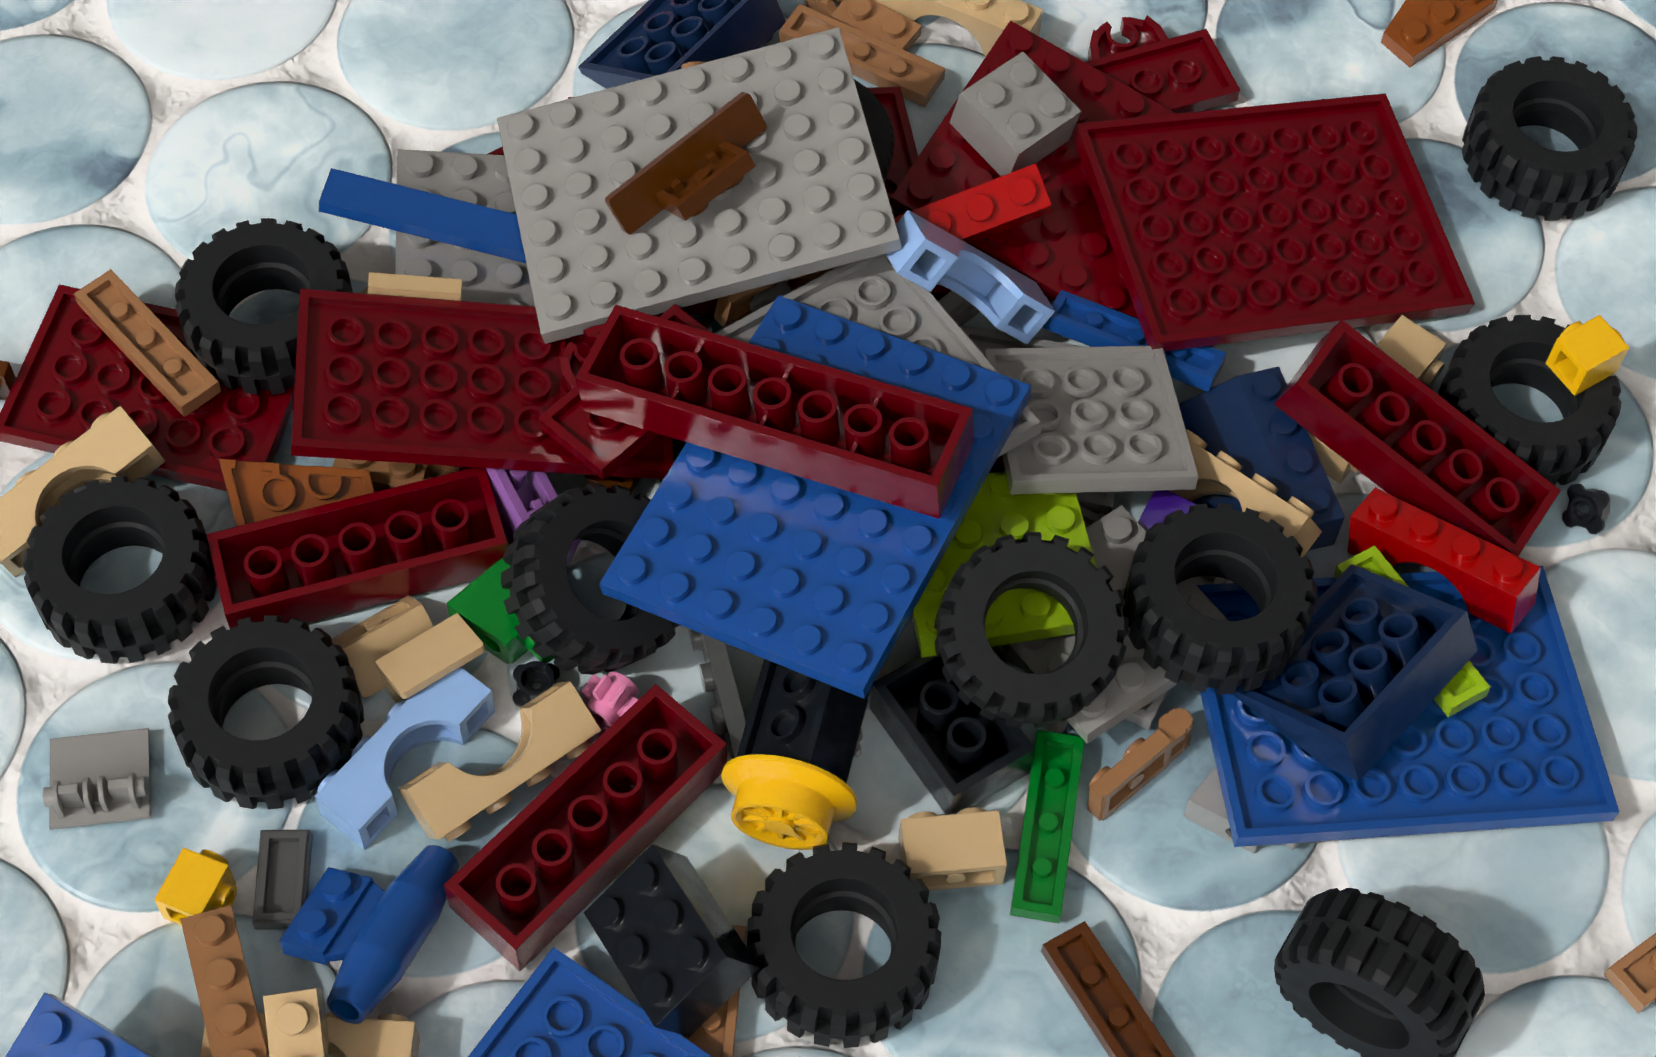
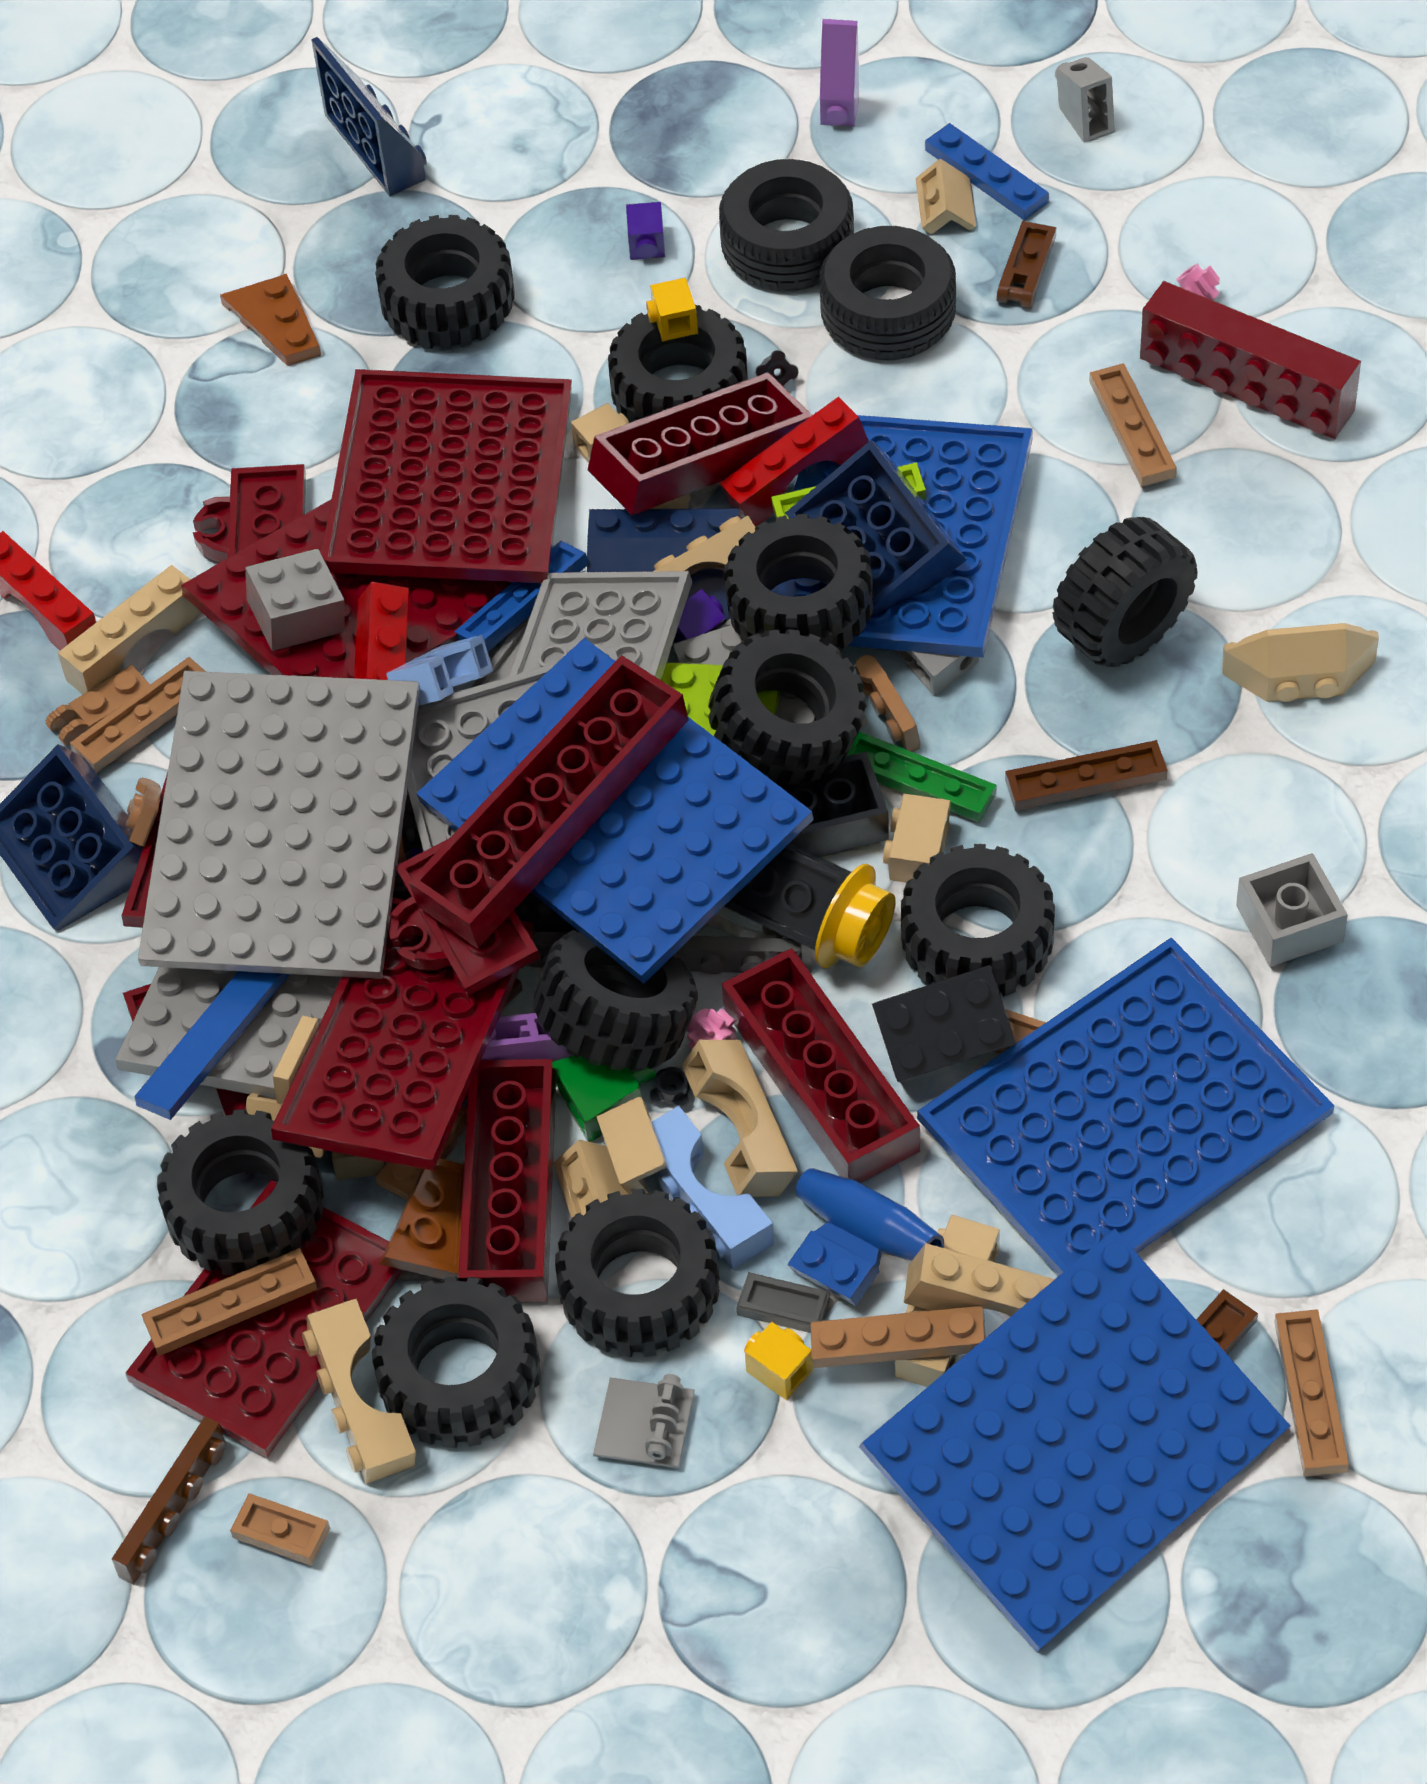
camera: 65 degrees left, 5 degrees down
(692, 168) = (293, 801): reddish brown bracket -> none

